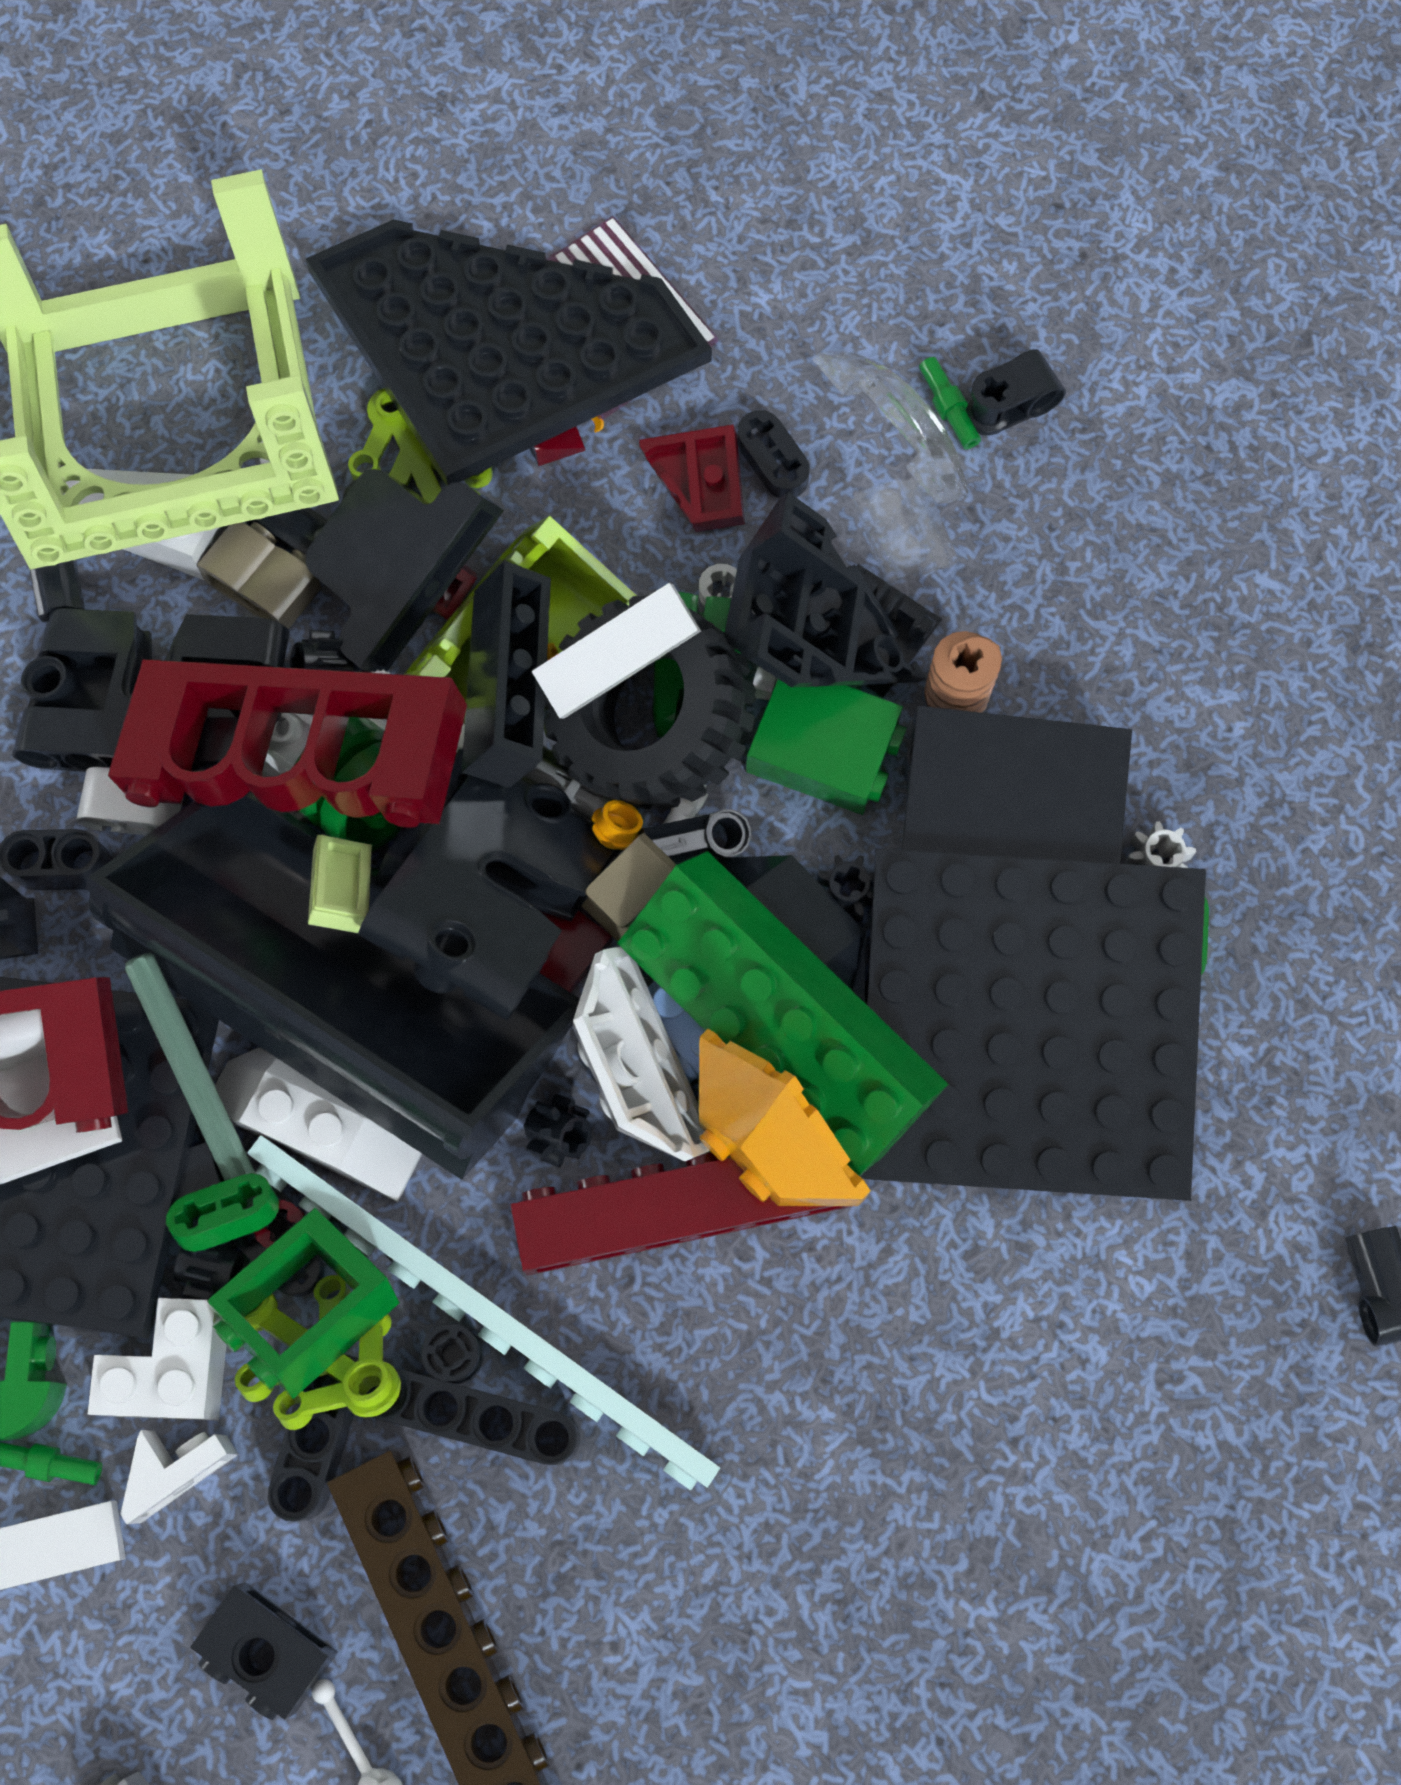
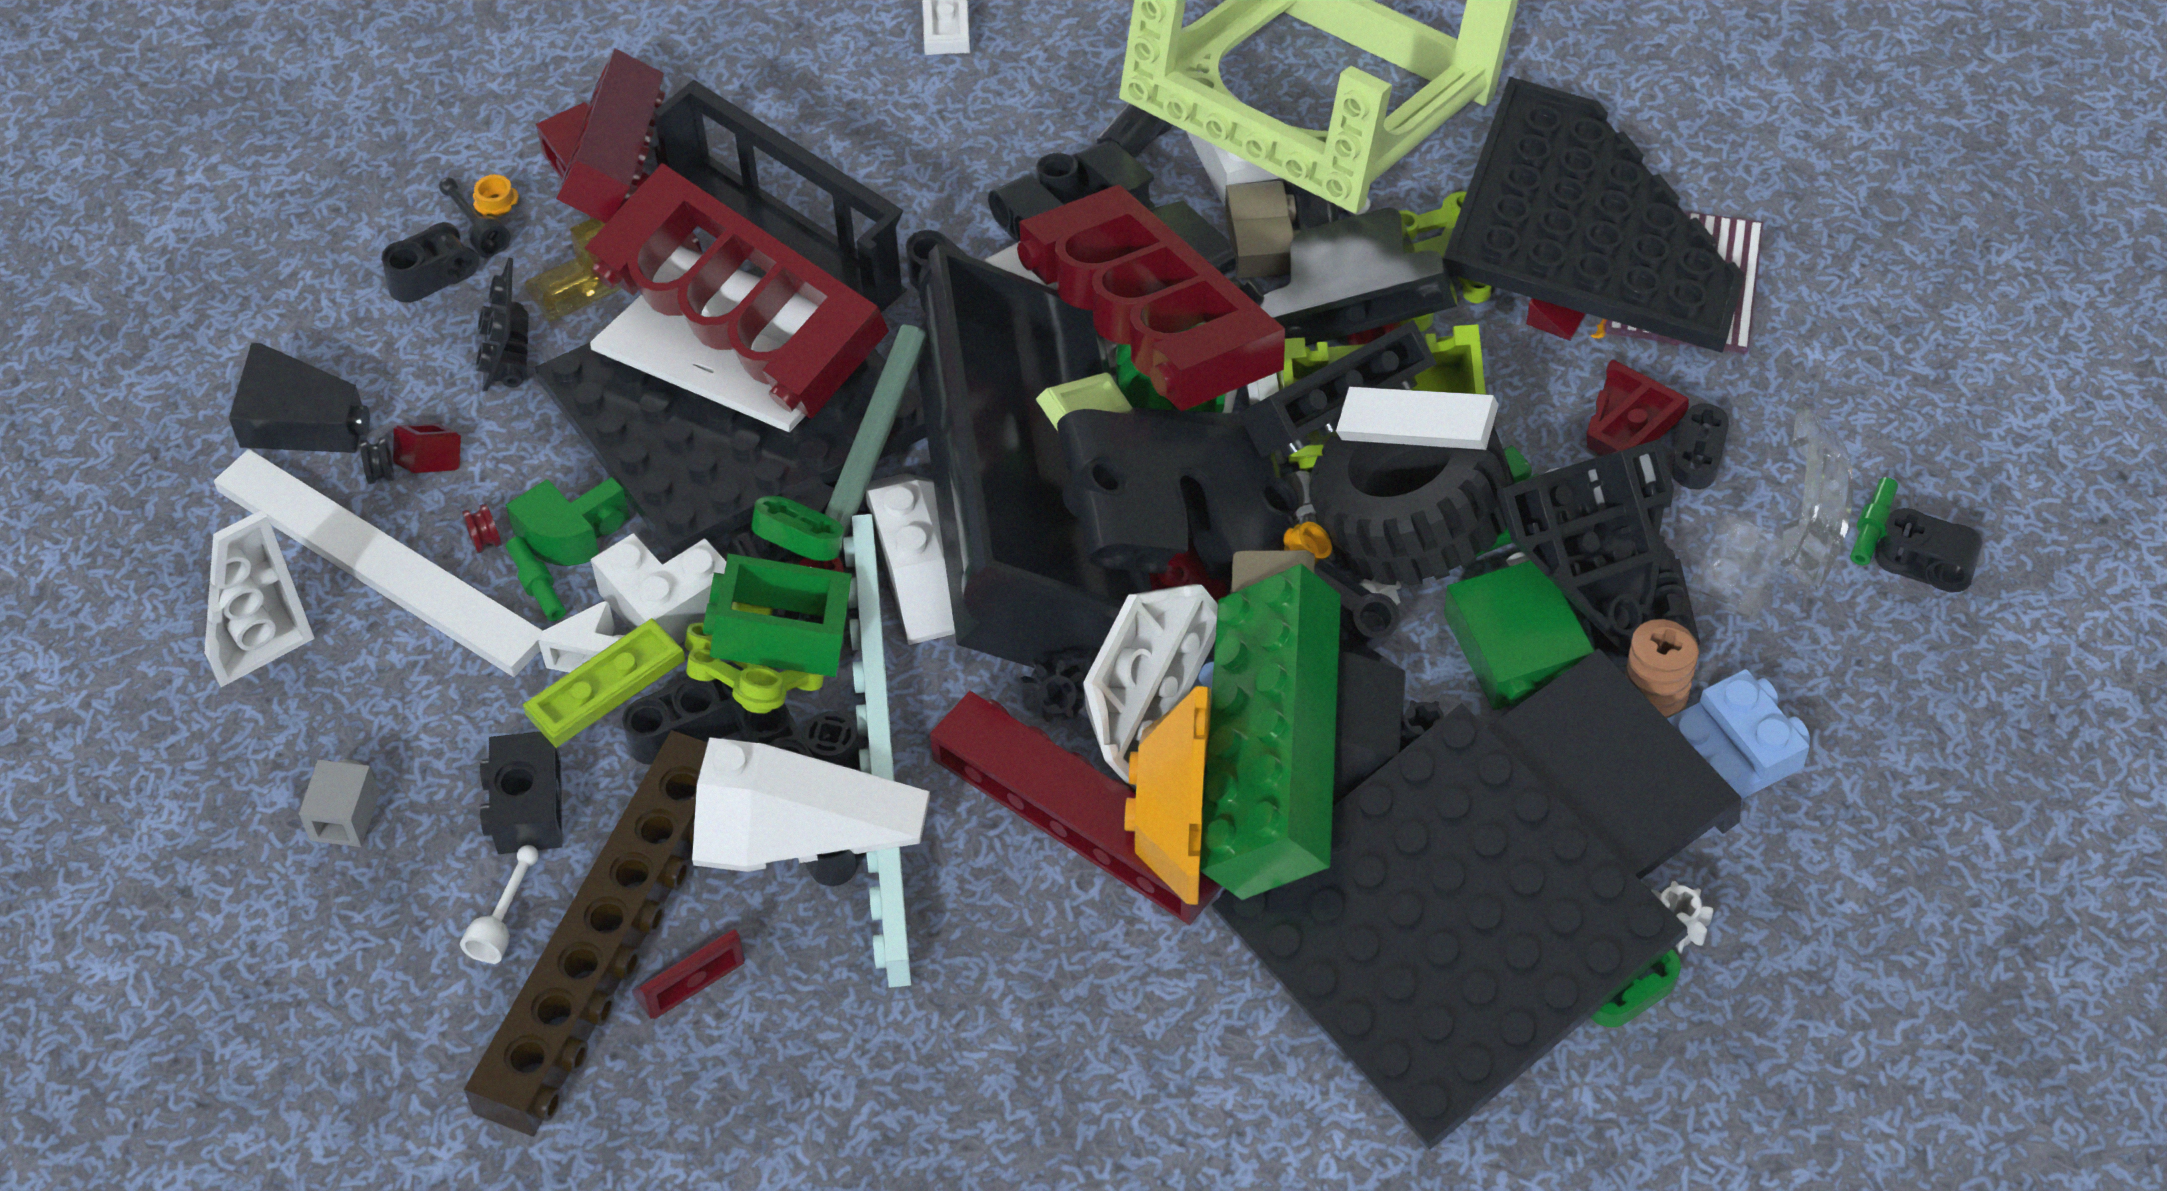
camera: 50 degrees right, 20 degrees down
(228, 1506) = (603, 682): none -> lime tile
(498, 1463) = (782, 805): none -> white wedge
(556, 1646) = (690, 974): none -> dark red slope
(1048, 668) = (1744, 733): none -> light blue plate

